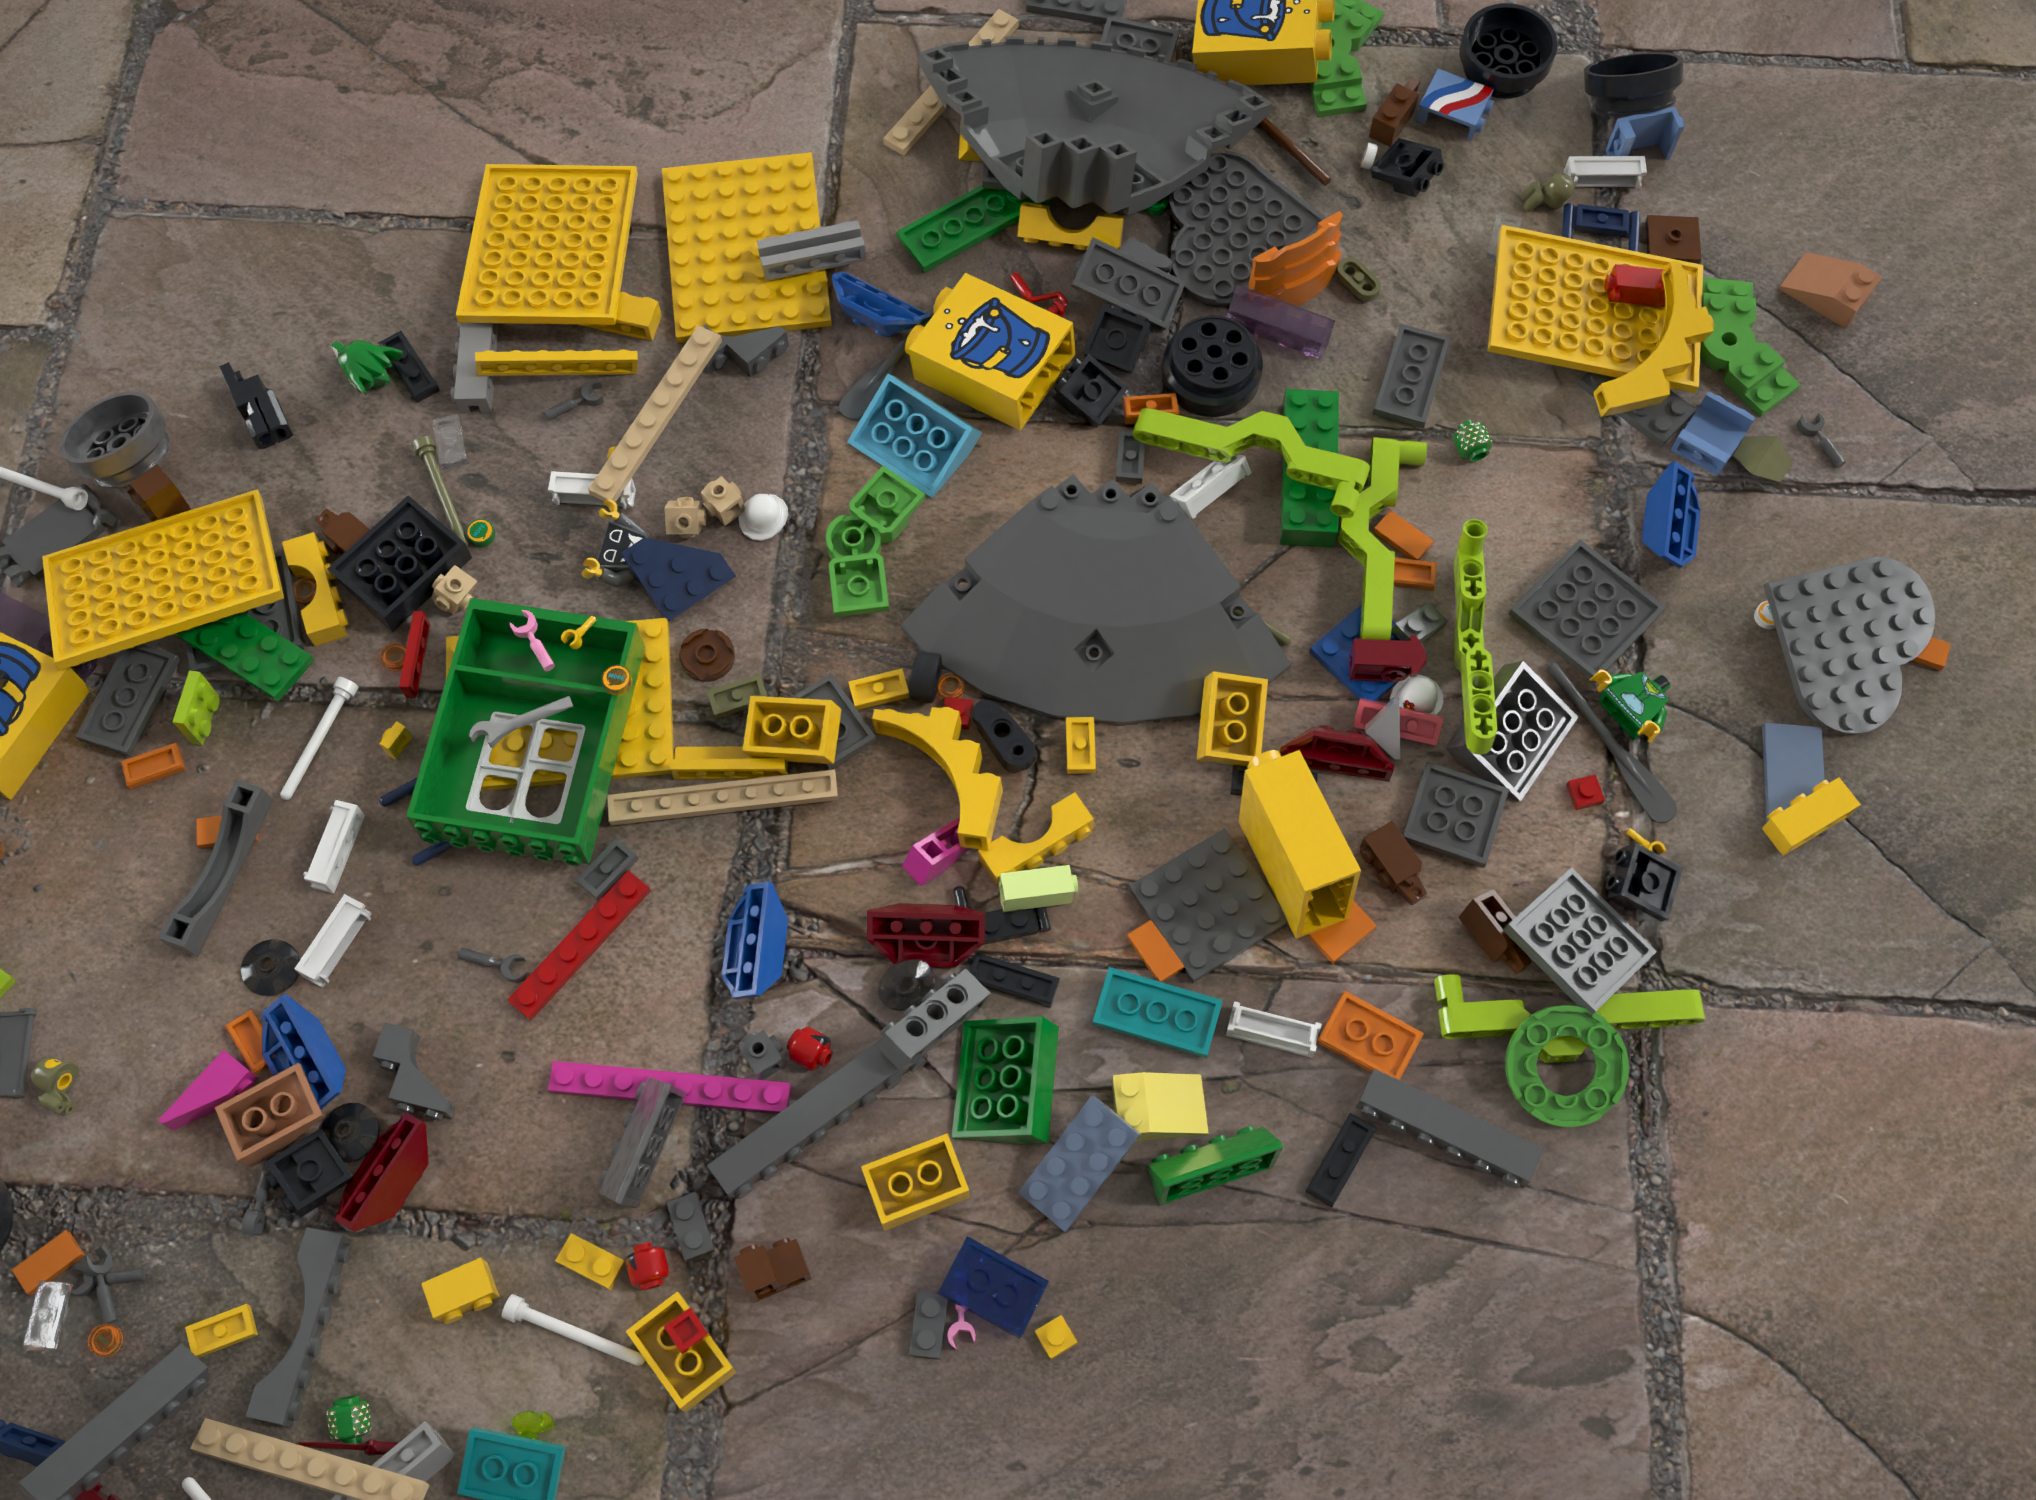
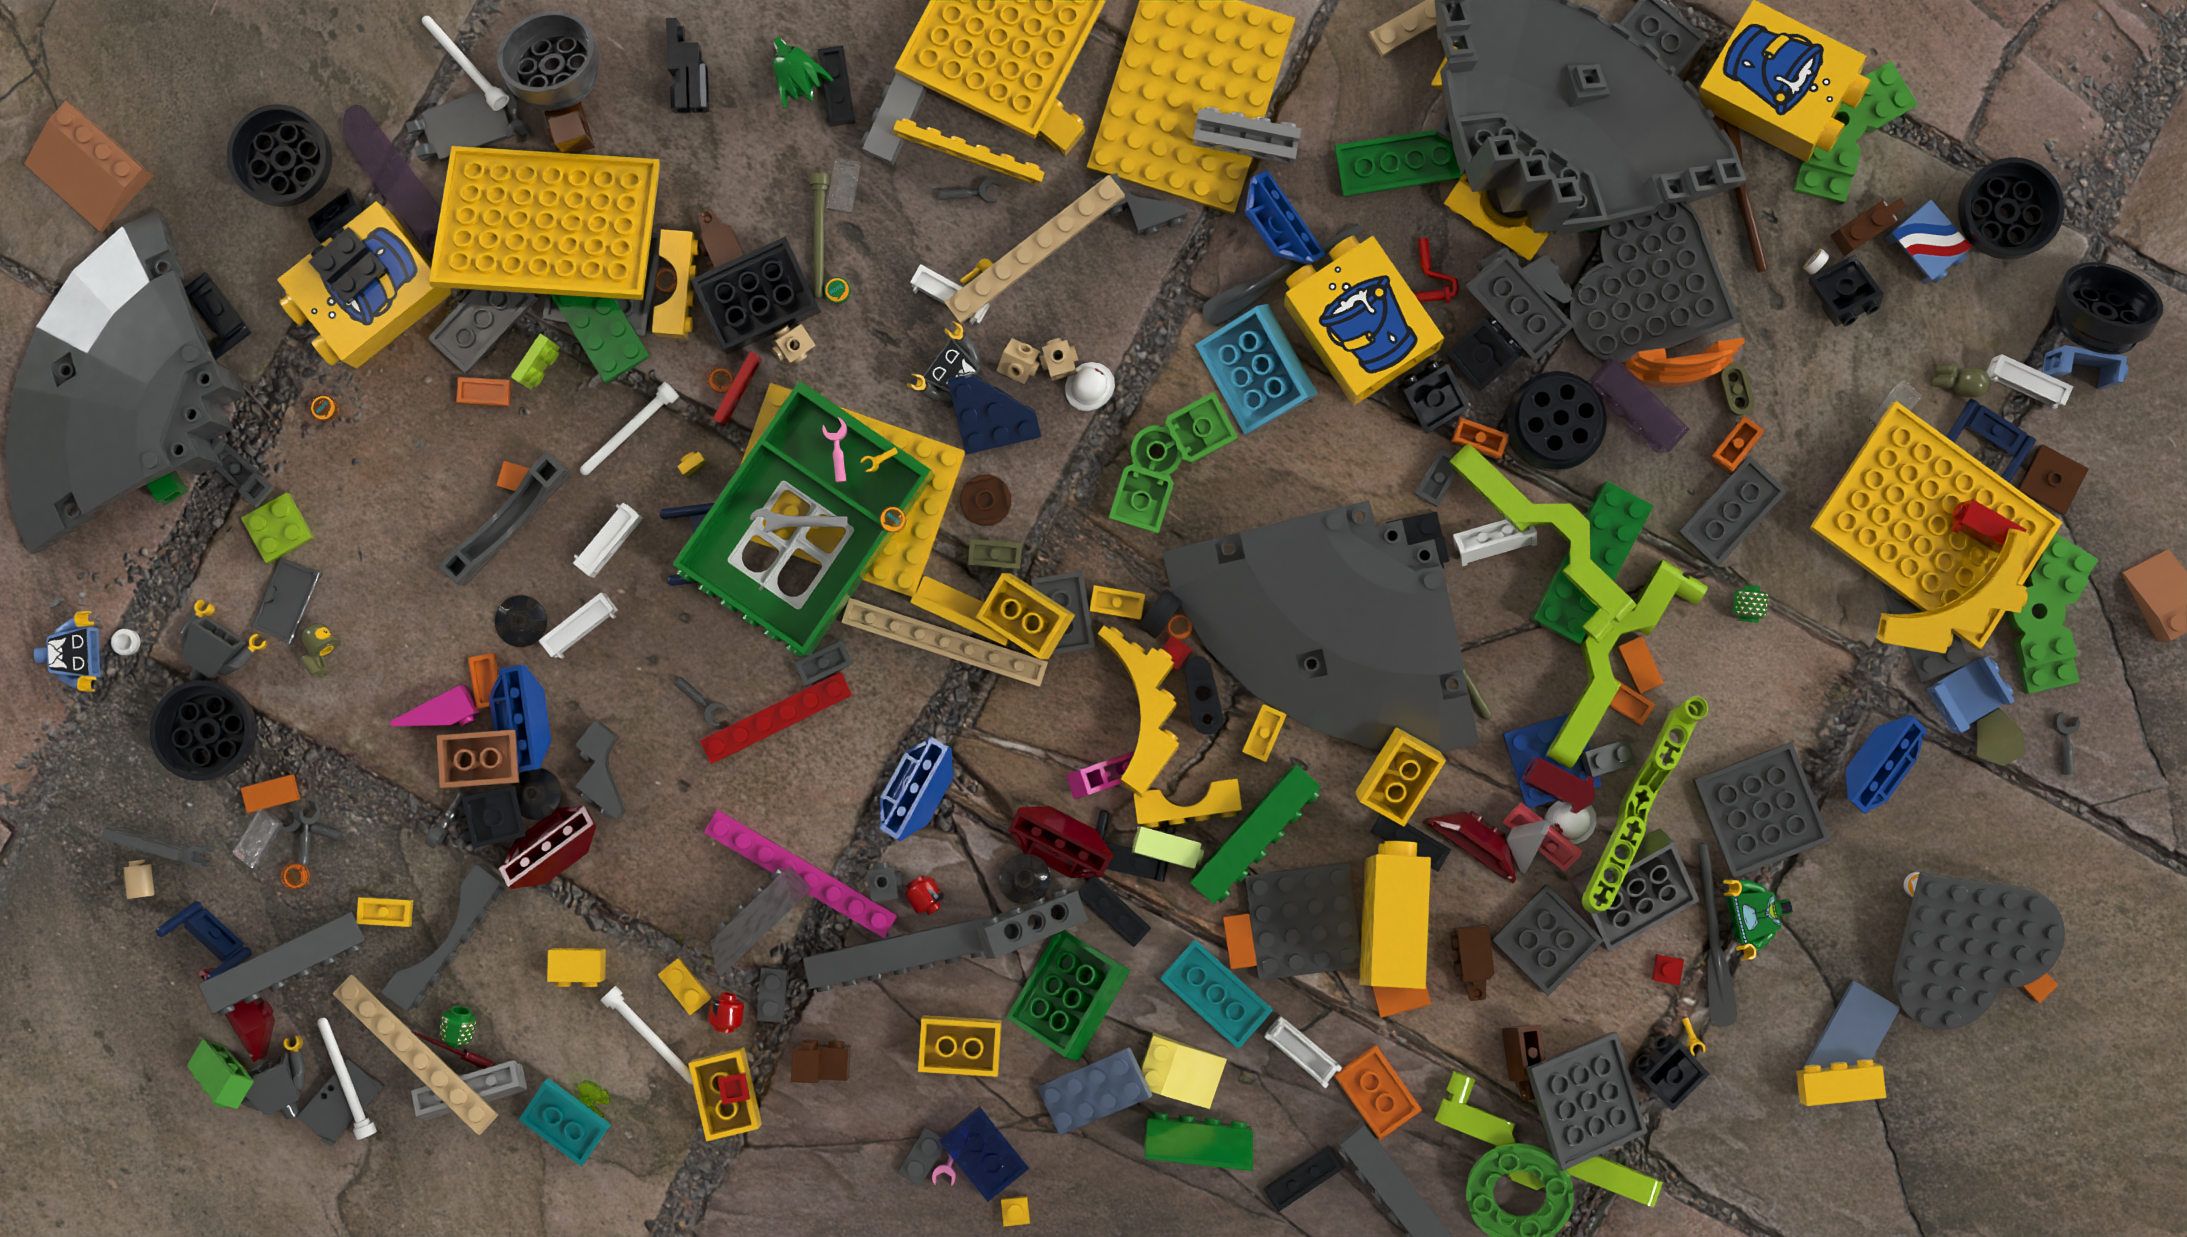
camera: 25 degrees right, 20 degrees up
(1118, 836) = (1254, 833): none -> green brick
(1384, 321) = (1737, 444): none -> orange brick

